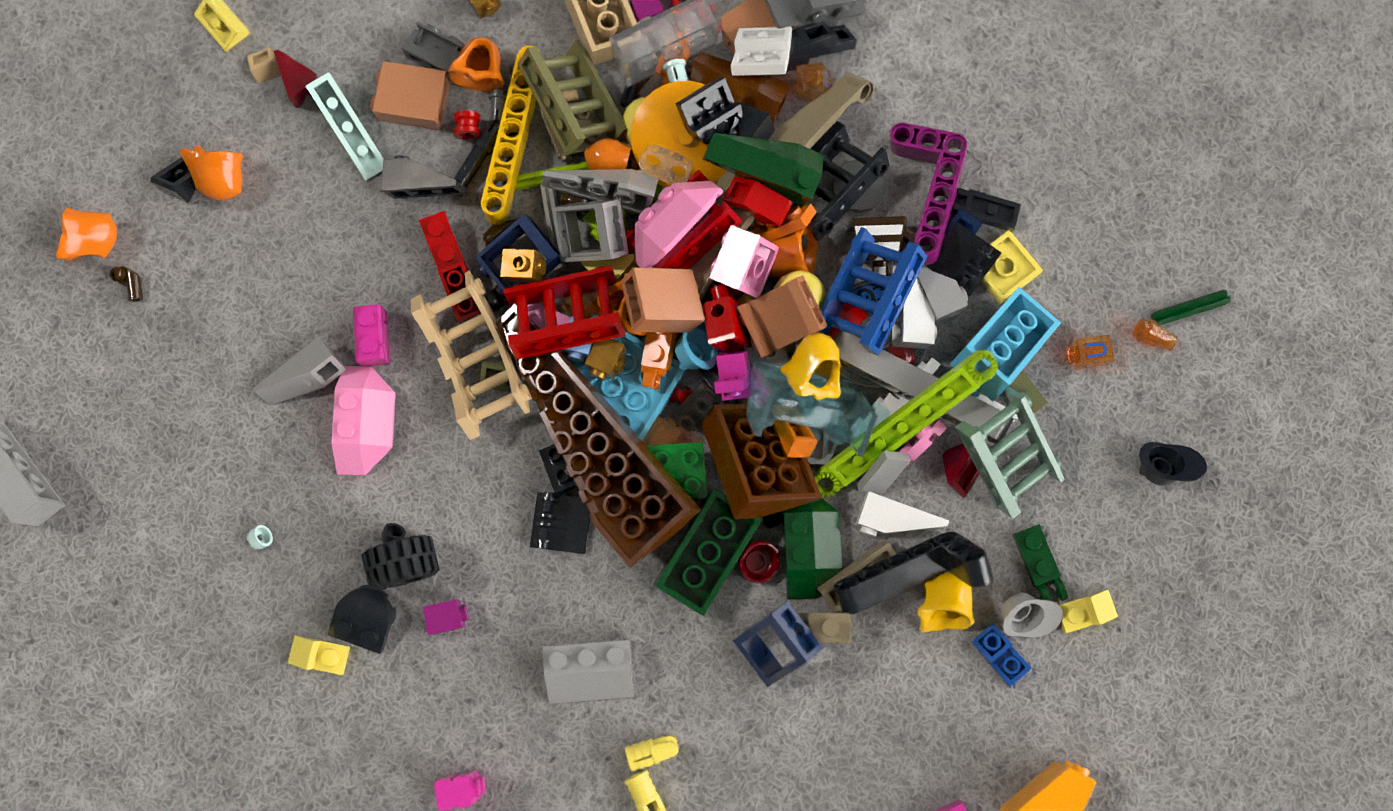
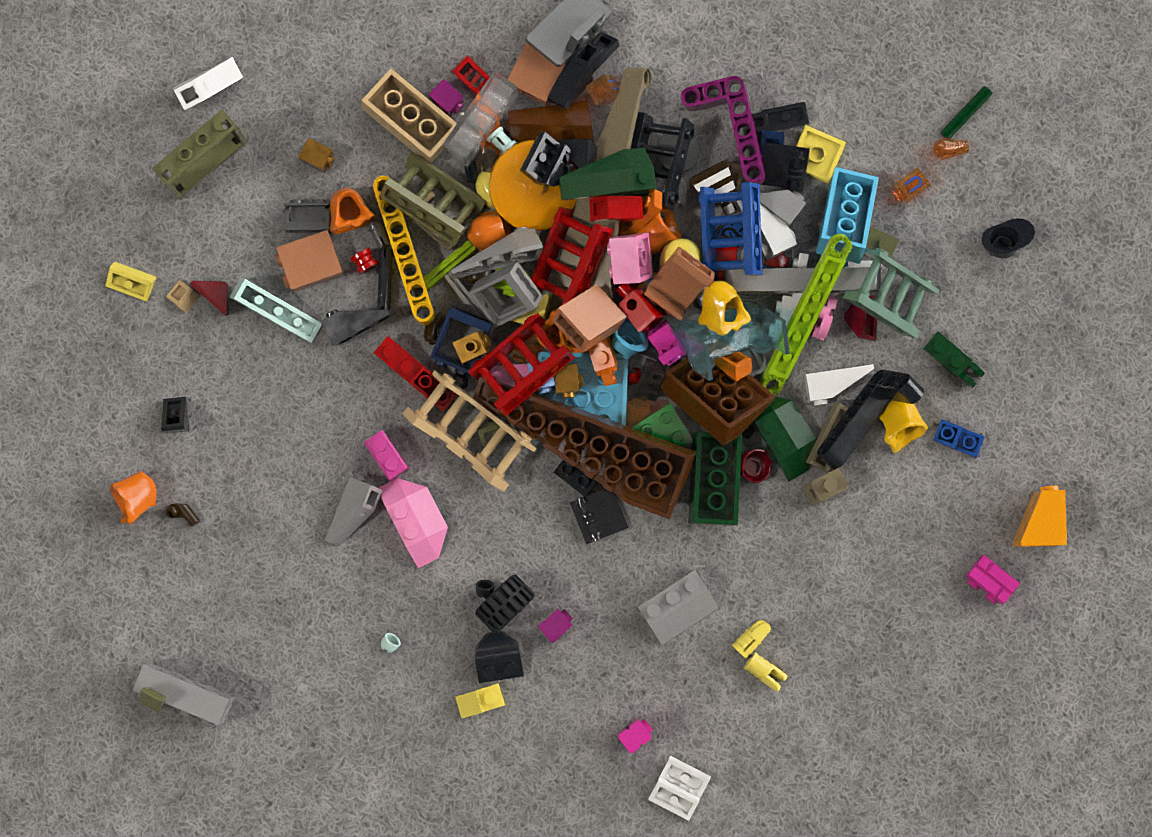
camera: 30 degrees left, 5 degrees up
(215, 172) = (201, 398): orange piece -> none
(667, 160) = (534, 212): clear beam -> none
(671, 218) = (563, 256): bright pink wedge -> none
(761, 51) = (555, 91): white slope -> none
(783, 622) = (796, 498): dark blue window -> none
(883, 472) = (809, 355): light grey tile -> none
(1029, 616) = (964, 401): light grey piece -> none
(1087, 611) = (1002, 375): light yellow slope -> none

